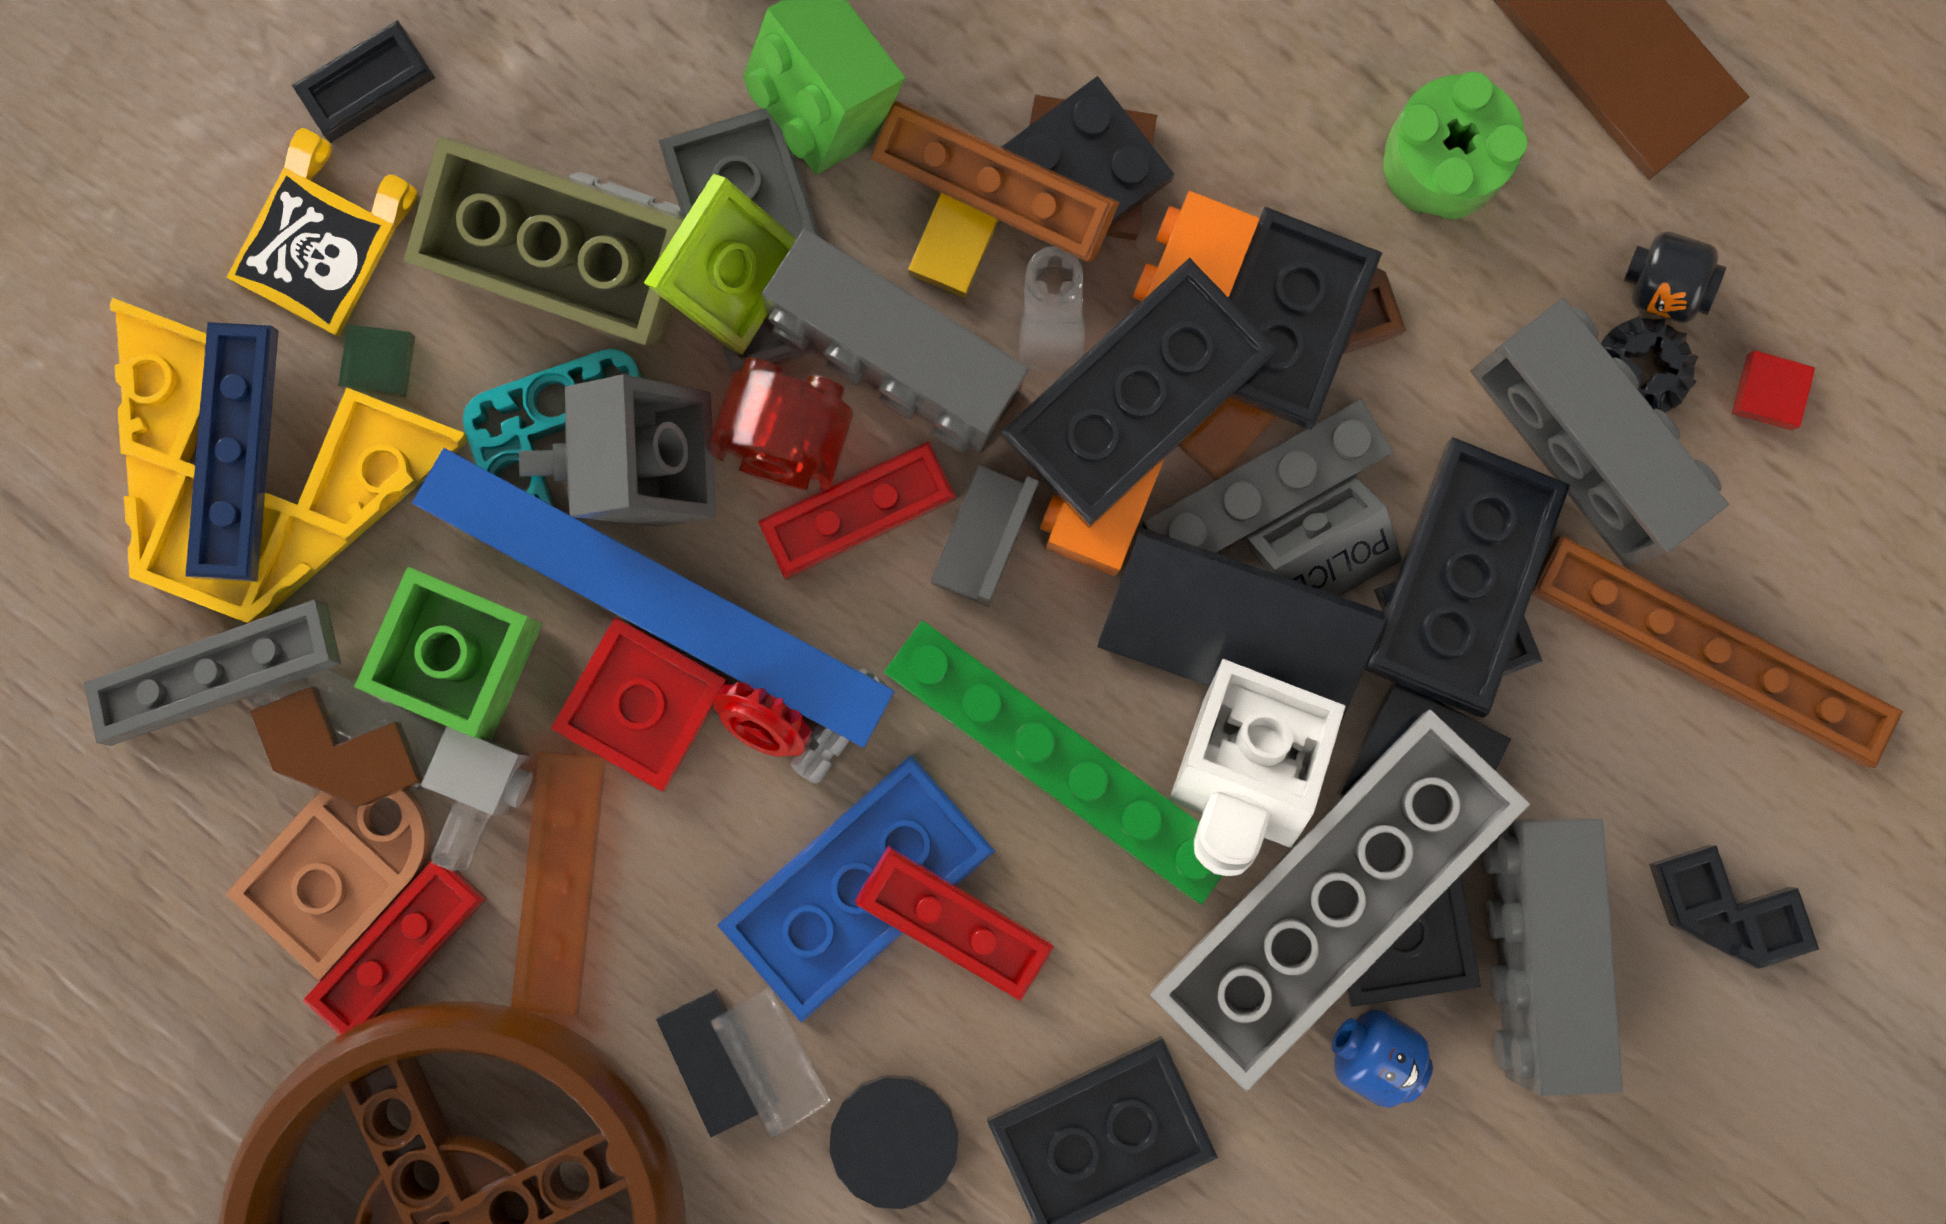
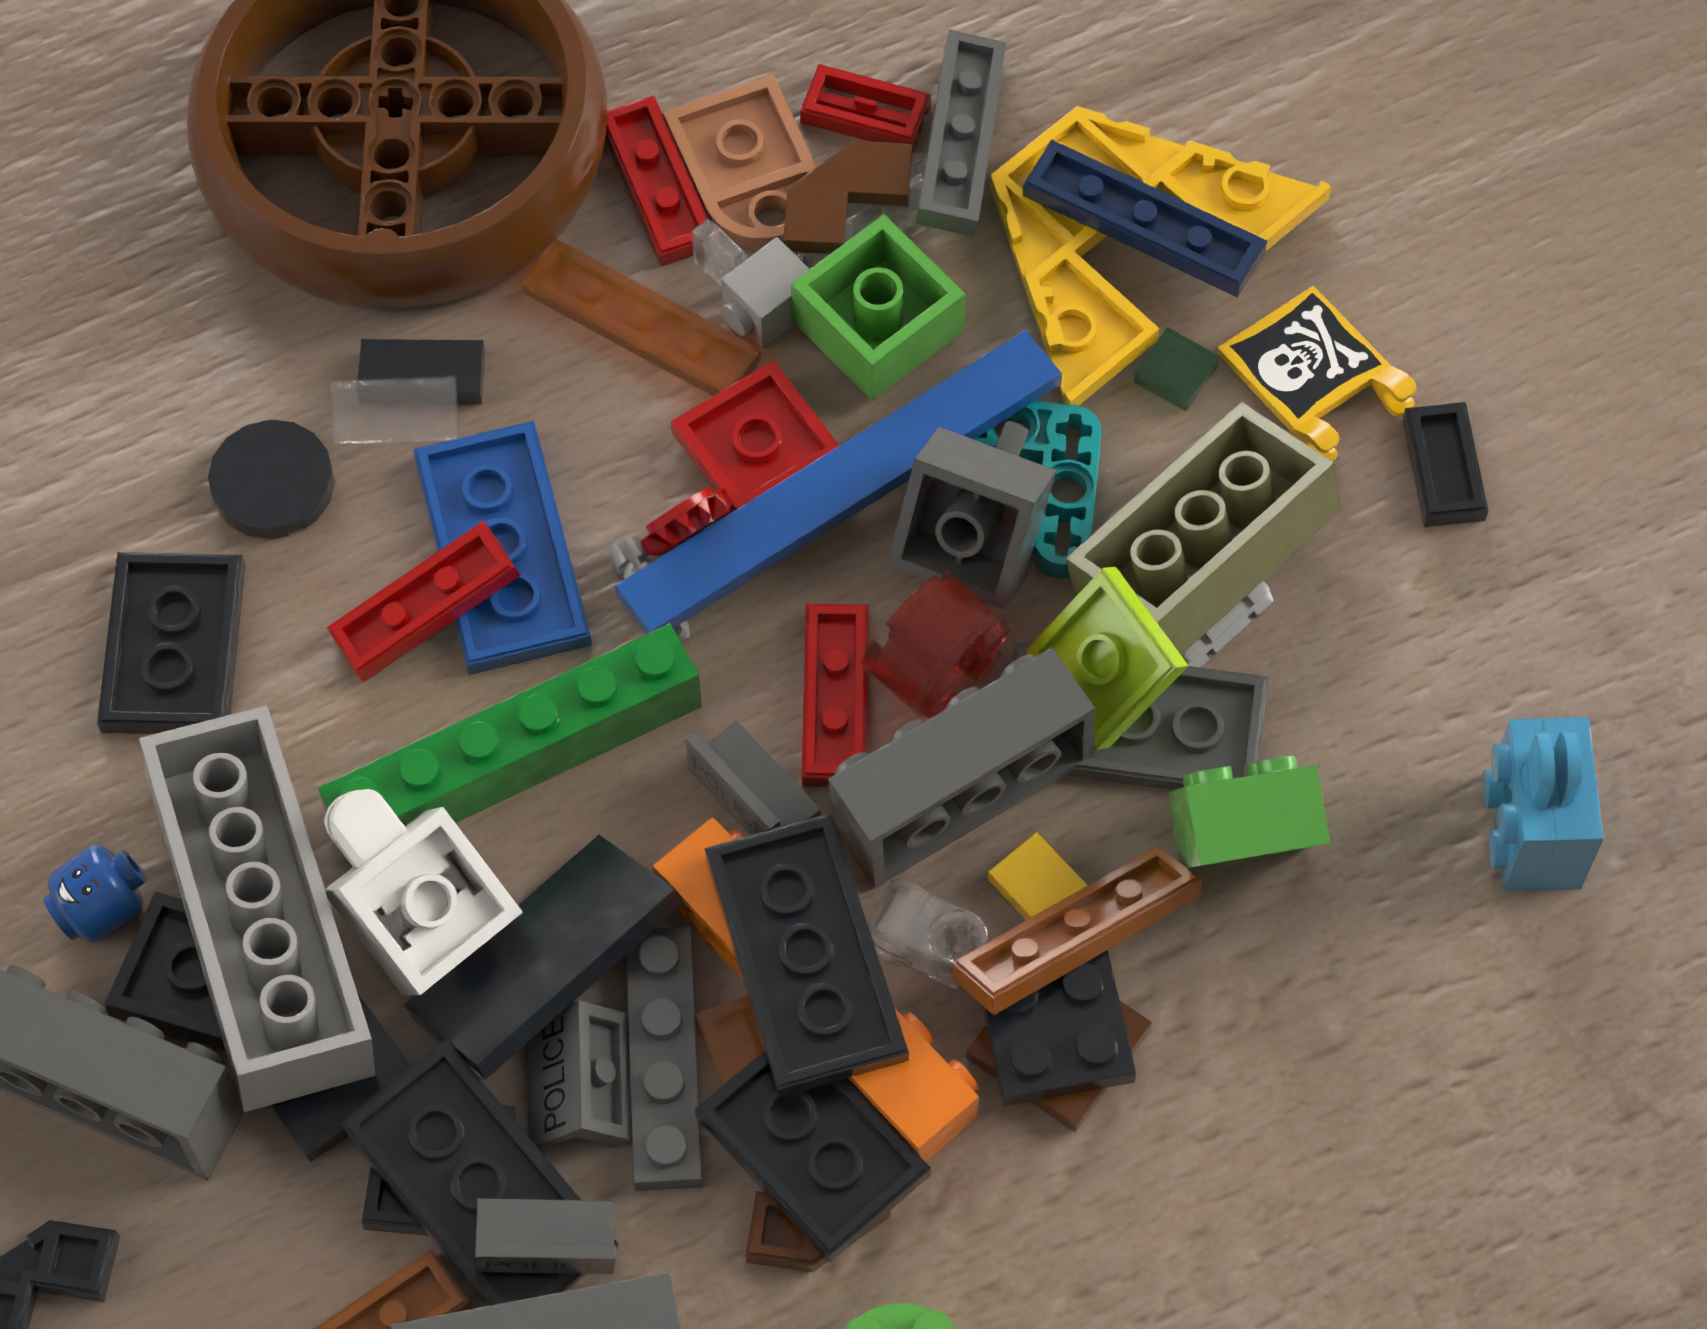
camera: 120 degrees right, 20 degrees down
(243, 782) = (861, 115): none -> red tile
(1497, 486) = (545, 1236): none -> dark grey panel

